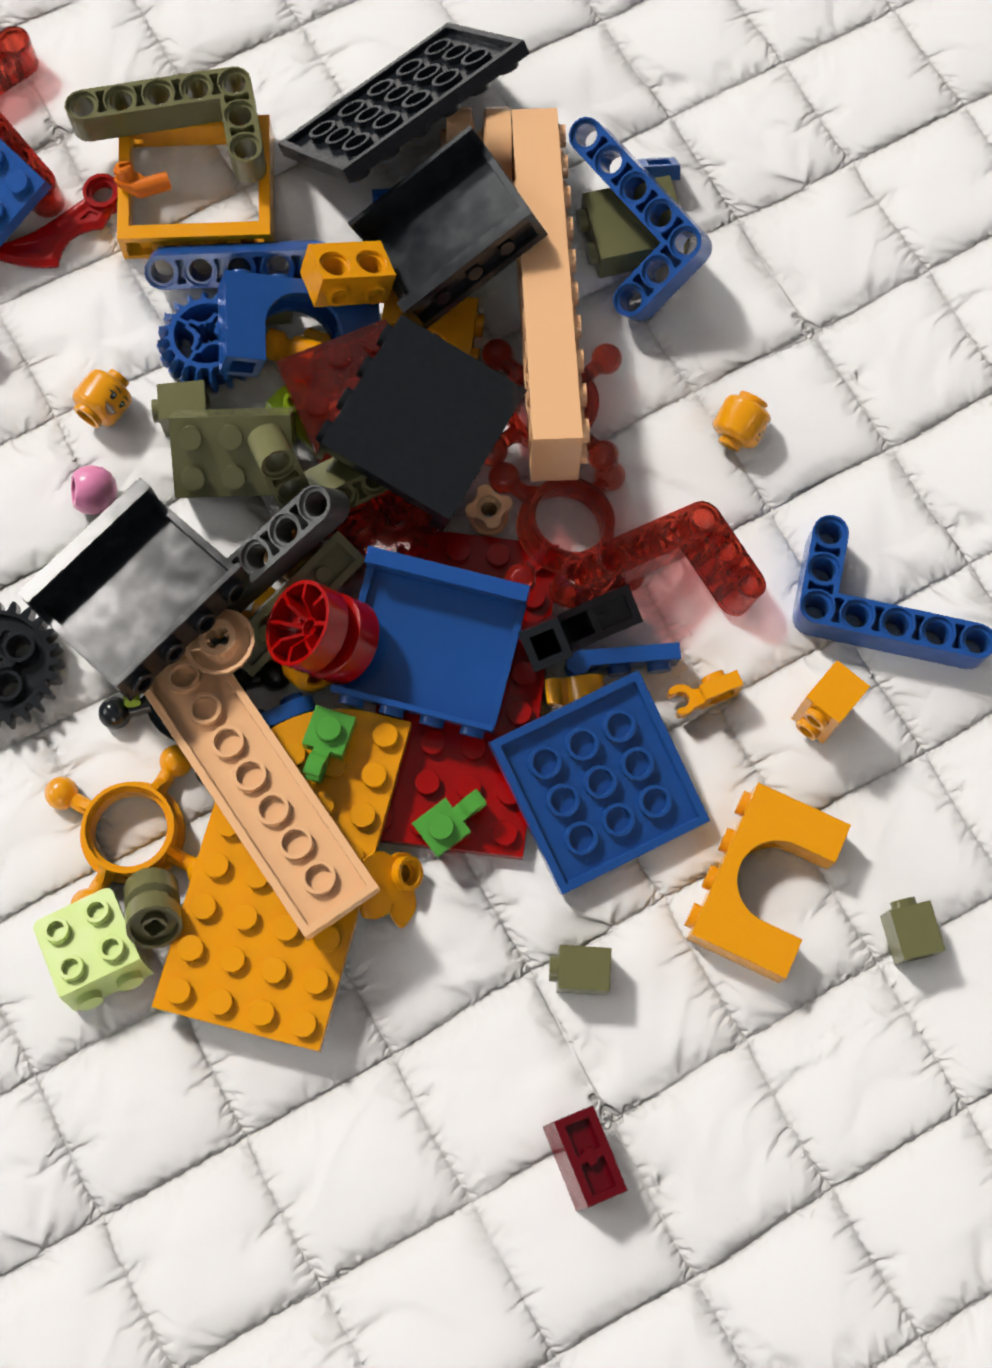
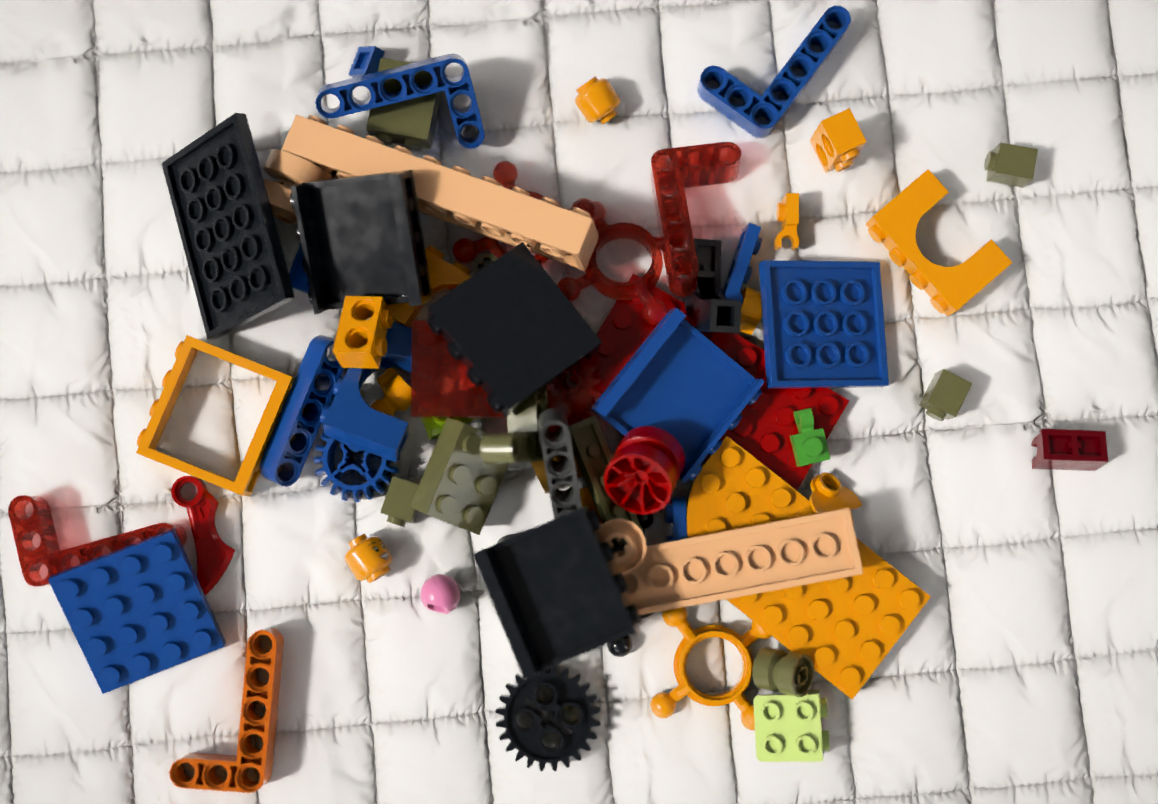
camera: 65 degrees left, 10 degrees up
(99, 115) = (156, 402): olive beam -> none
(137, 184) = (204, 460): orange arm -> none
(327, 737) = (717, 497): bright green plate -> none
(489, 503) = (589, 302): light nougat brick -> none

